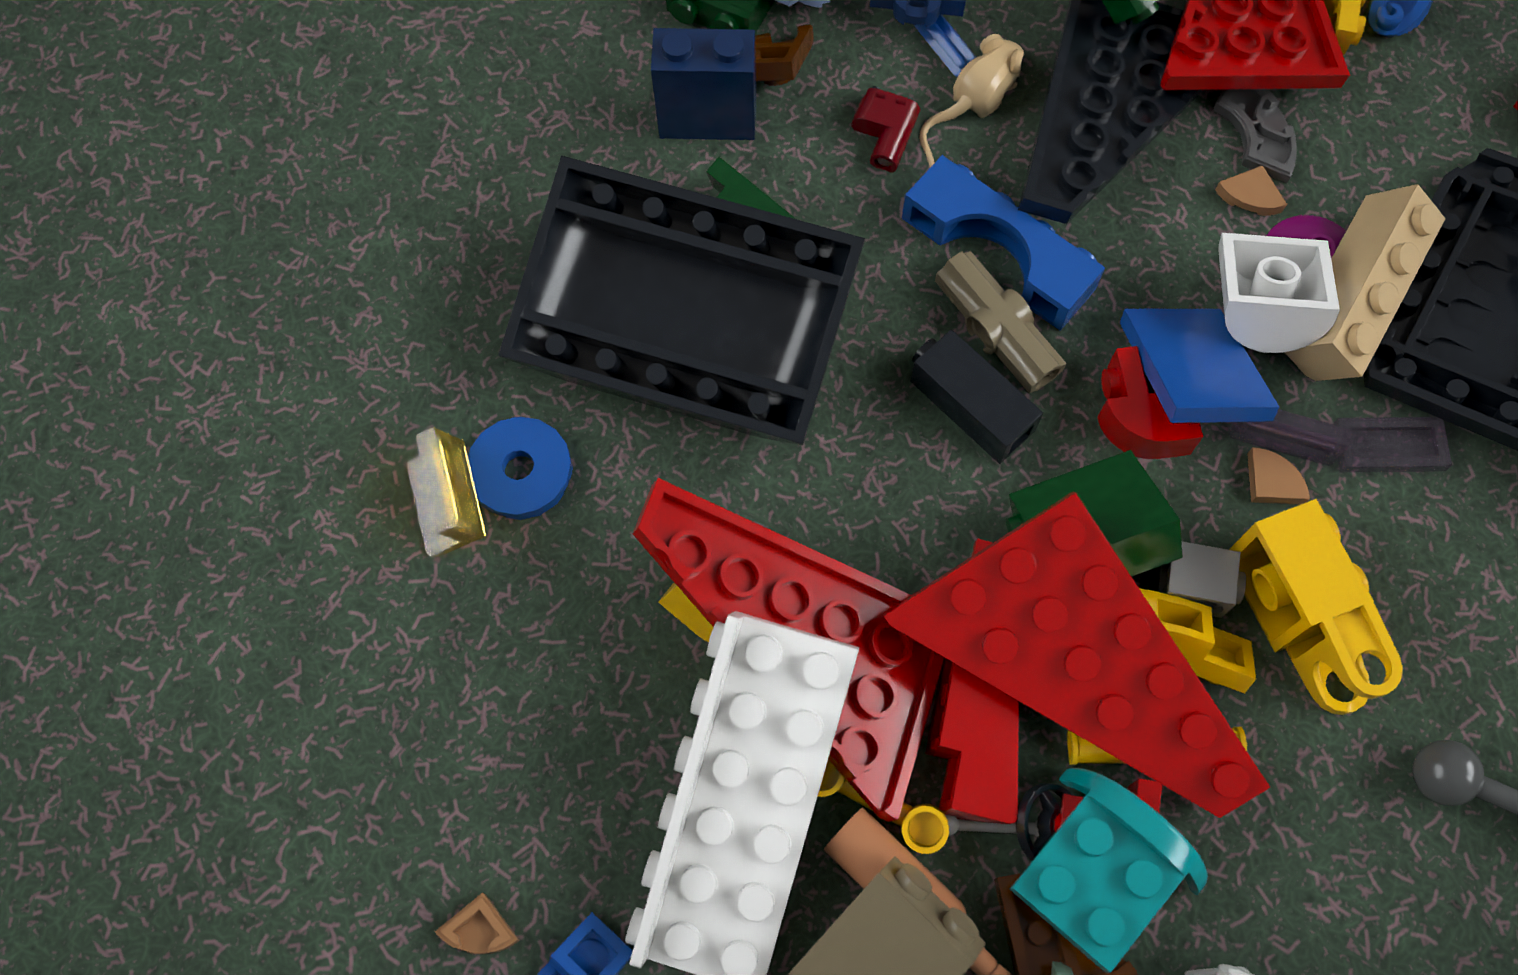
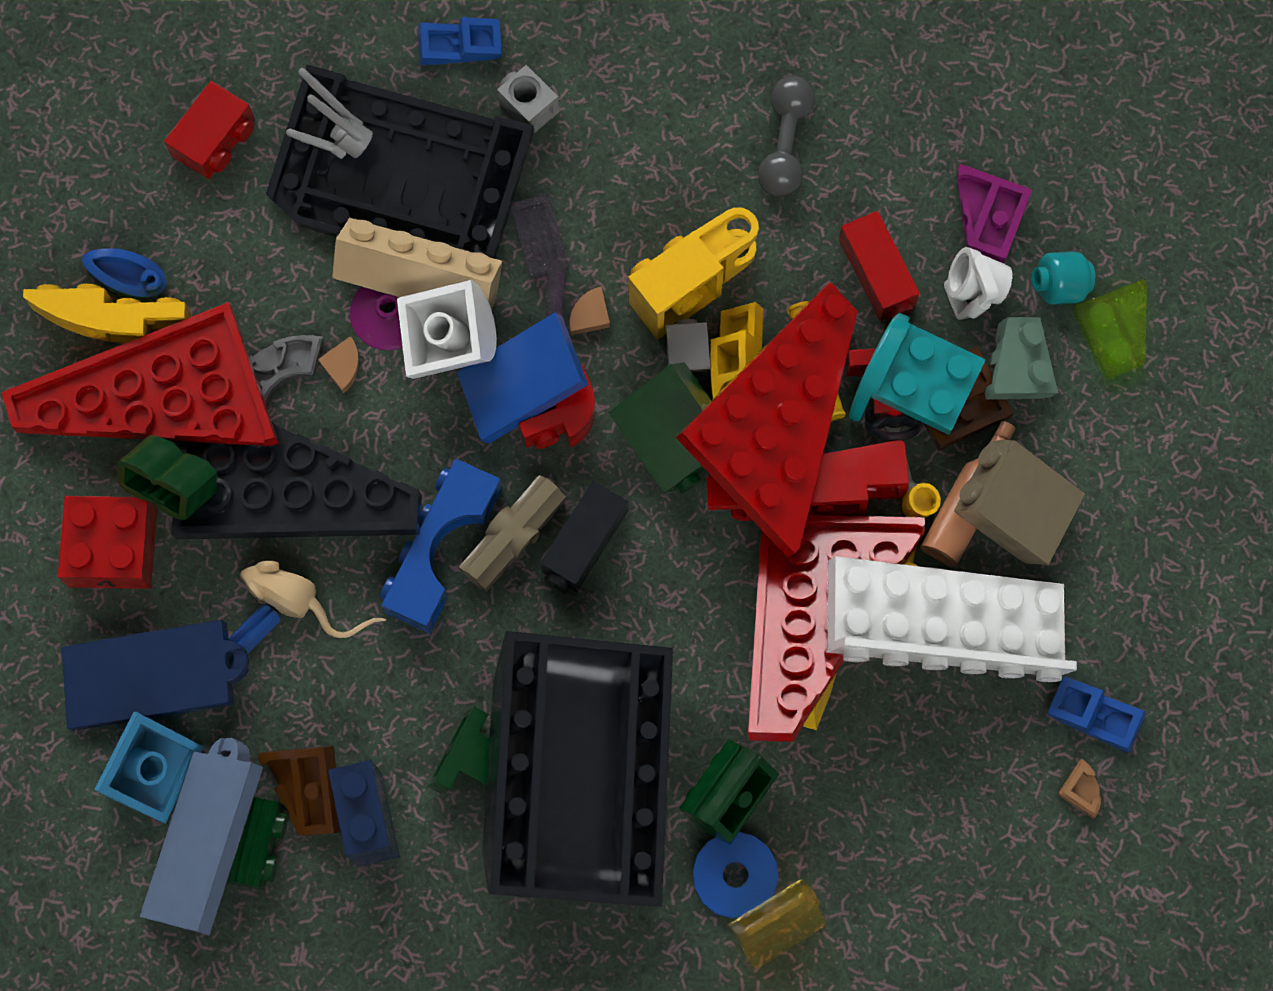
camera: 105 degrees left, 5 degrees up
(607, 471) = (729, 791): none -> dark green brick
(888, 119) = (340, 663): dark red piece -> none
(1285, 872) = (879, 266): none -> red brick

